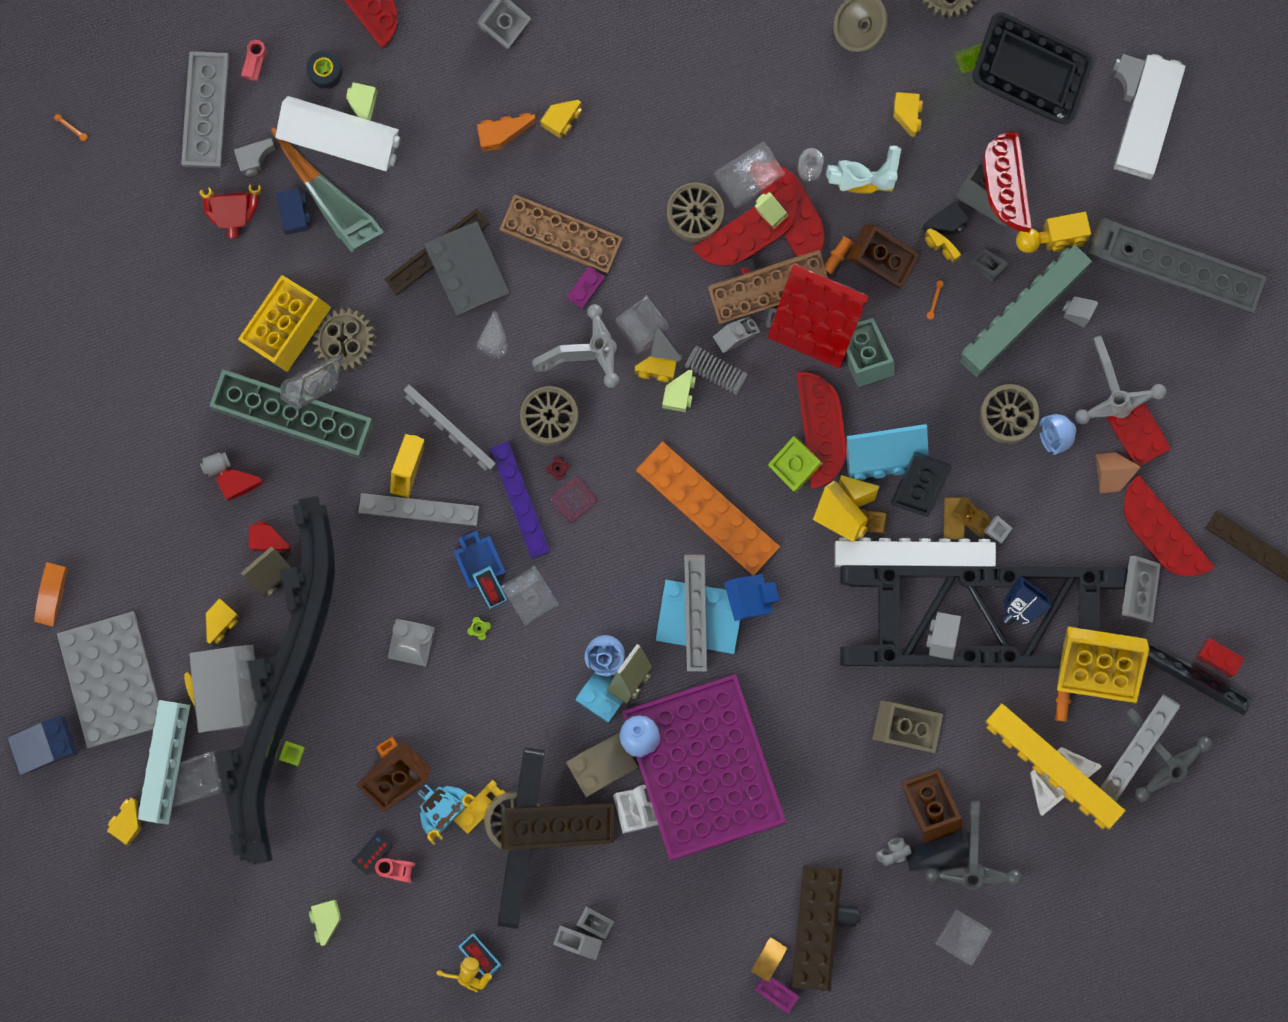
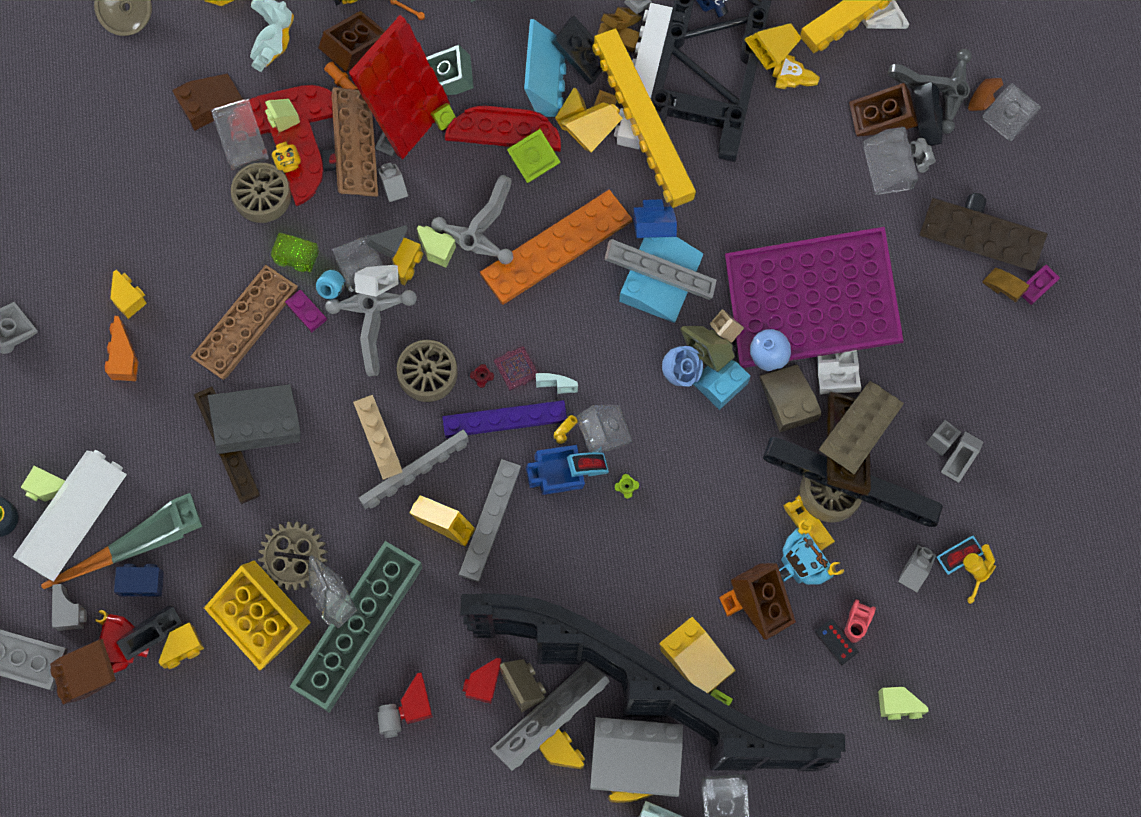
camera: 85 degrees left, 10 degrees down
(197, 188) = (82, 672): none -> reddish brown slope
(242, 600) = (549, 715): none -> light grey plate
(244, 264) = (179, 645): none -> yellow slope
(246, 234) = (149, 632): none -> black slope
(327, 725) = (696, 656): none -> yellow slope
(411, 642) = (626, 557): light grey slope -> none
(457, 916) = (917, 568): none -> light grey slope
(470, 386) = (378, 437): none -> tan brick
(493, 338) = (332, 407): clear slope -> none
(521, 557) = (564, 428): none -> yellow arm
(564, 545) = (563, 383): none -> light aqua slope
(577, 836) = (861, 427): none -> dark tan plate
(613, 303) = (330, 284): none -> medium azure head
(623, 345) = (376, 279): none -> white slope
(640, 261) = (294, 252): none -> clear neon green brick
(657, 689) = (726, 326): none -> tan slope
(690, 363) = (401, 221): light grey piece -> none
(693, 426) = (479, 224): none -> light grey piece
(730, 226) = (286, 157): none -> yellow head
(782, 133) = (202, 95): none -> reddish brown slope
(810, 164) = (246, 77): clear piece -> none
(819, 365) = (443, 116): none -> lime plate
(857, 562) = (644, 118): none -> yellow brick
(877, 821) = (890, 161): none -> clear slope
(907, 726) = (805, 117): dark tan slope -> none
(944, 636) = (728, 63): light grey brick -> none
(954, 704) = (792, 74): none -> yellow rock
(975, 905) = (983, 96): none -> dark orange slope
(977, 678) = (773, 44): none -> yellow slope

